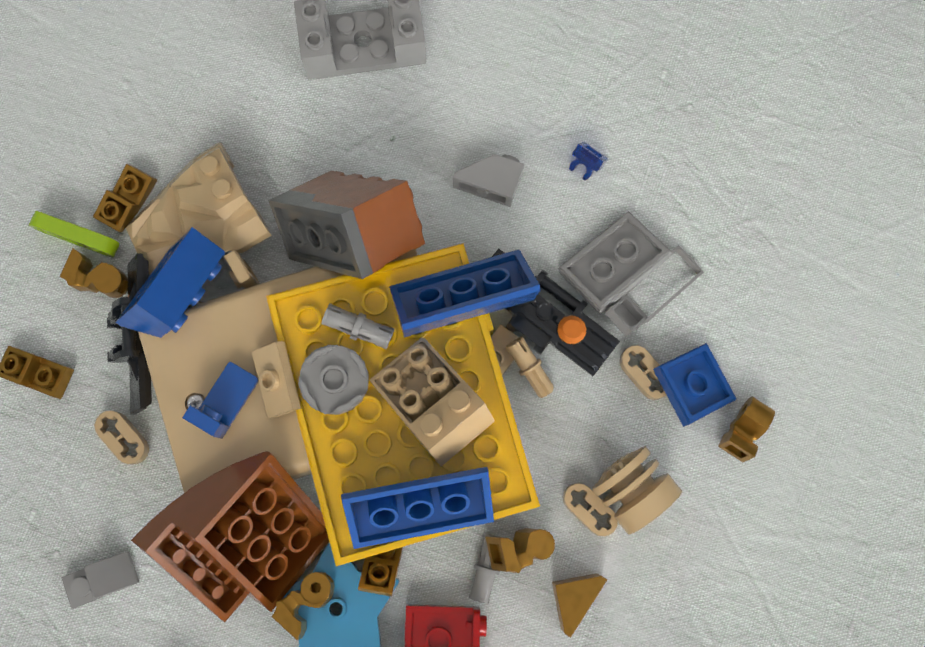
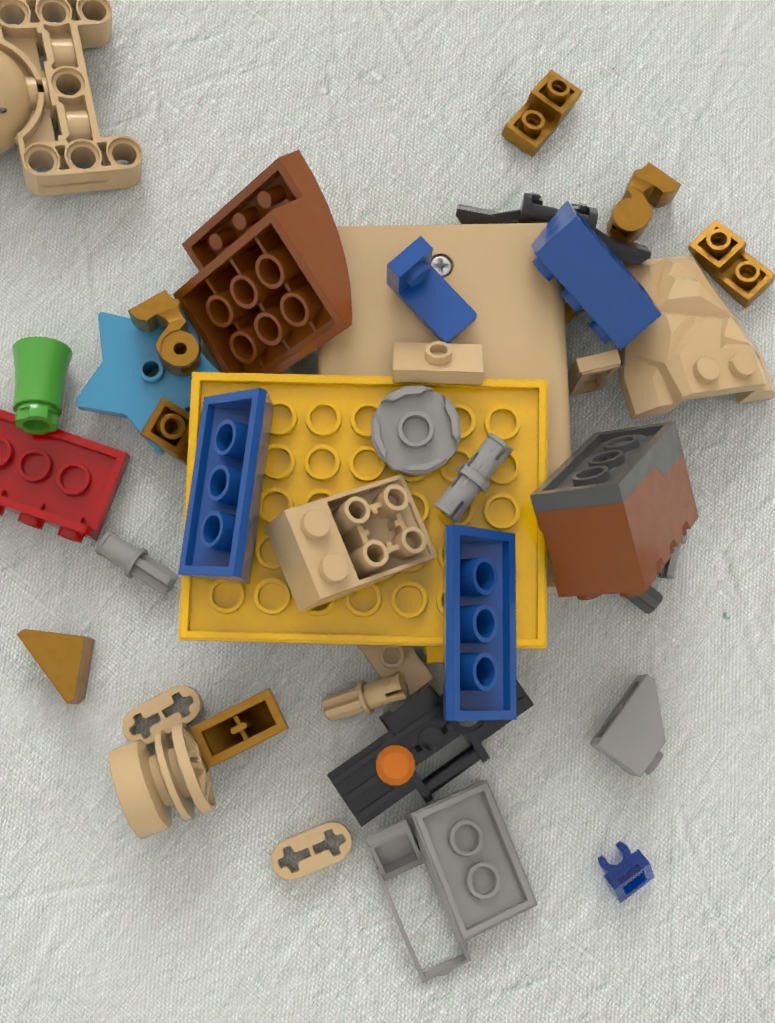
camera: 105 degrees right, 0 degrees up
(74, 234) = (699, 193): lime beam -> none
(100, 579) = (277, 123): light grey slope -> none
(115, 442) = (432, 185): tan beam -> none
(517, 554) = (146, 621): pearl gold leg -> none
(582, 447) = (239, 728): none -> pearl gold slope
(694, 384) = (274, 911): blue tile -> none
(749, 426) = (197, 970): pearl gold leg -> none

